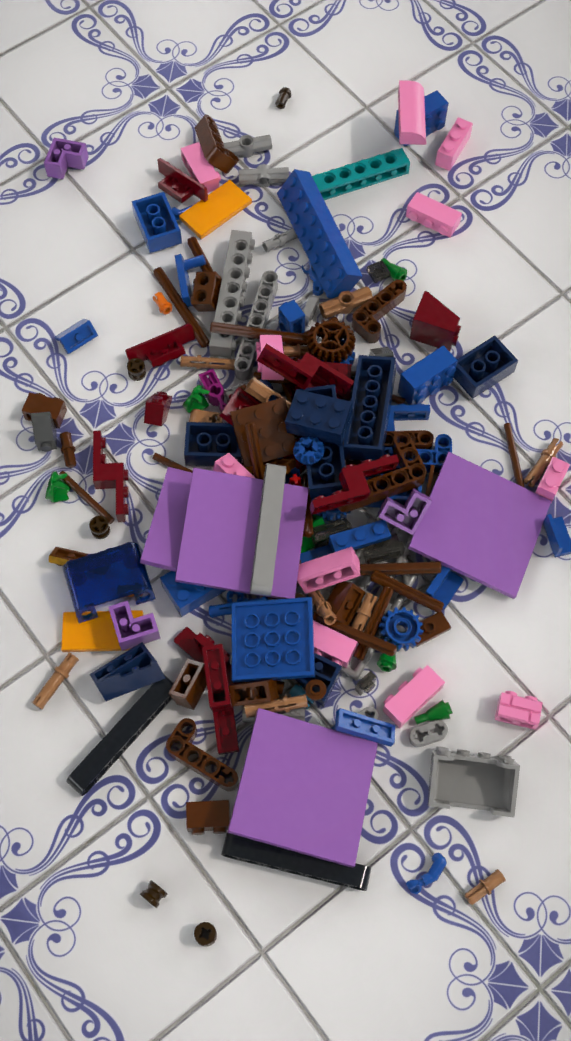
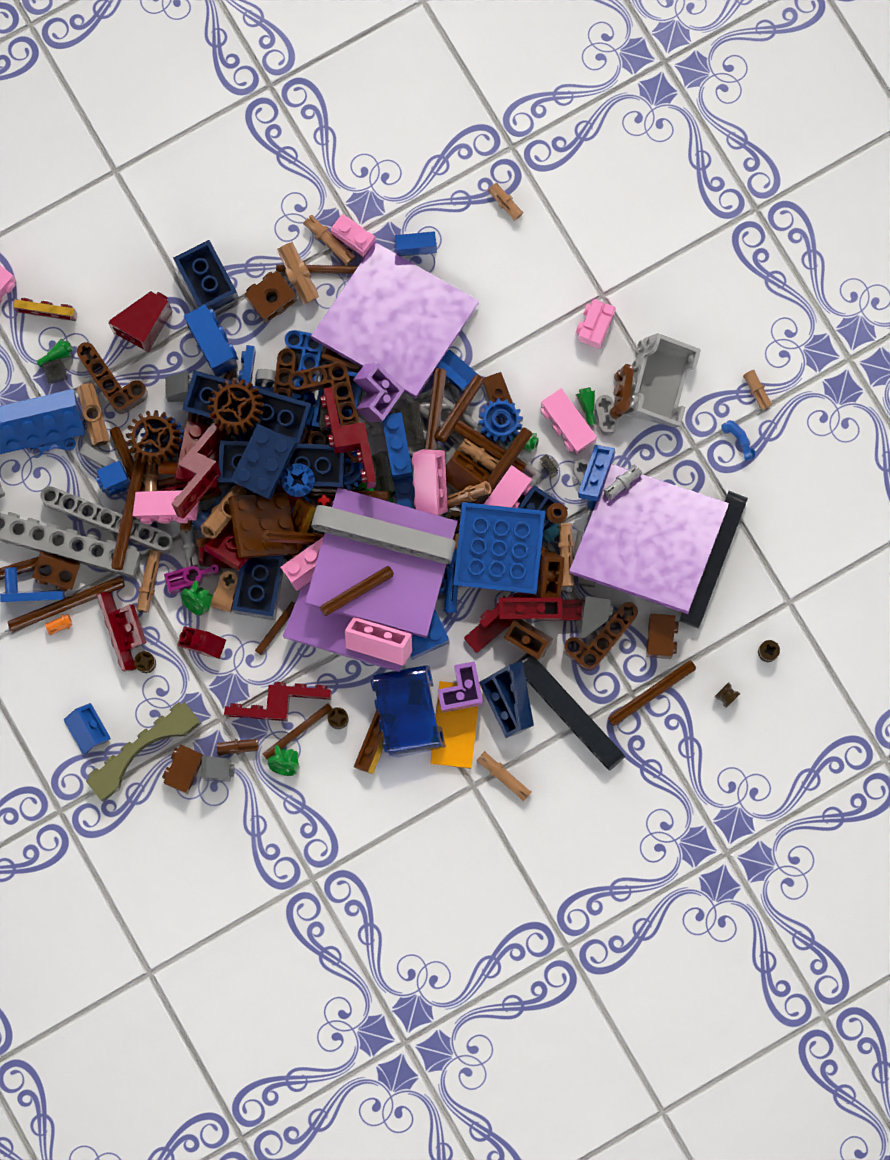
camera: 80 degrees left, 15 degrees up
(33, 356) = (109, 778): none -> olive arch
(150, 816) = (651, 693): none -> reddish brown axle
(164, 535) = (378, 641): none -> bright pink brick
(209, 509) = (356, 590): none -> reddish brown axle
(220, 742) = (593, 614): none -> dark grey slope
(359, 753) = (622, 482): none -> light grey pin
(369, 382) = (228, 408): none -> reddish brown gear
(403, 421) = (265, 378): none -> light grey beam
(429, 257) = (45, 309): none -> plate
(454, 743) = (622, 391): none -> reddish brown plate
(478, 410) = (271, 285): none -> reddish brown brick
(505, 438) = (298, 273): none -> medium nougat piece

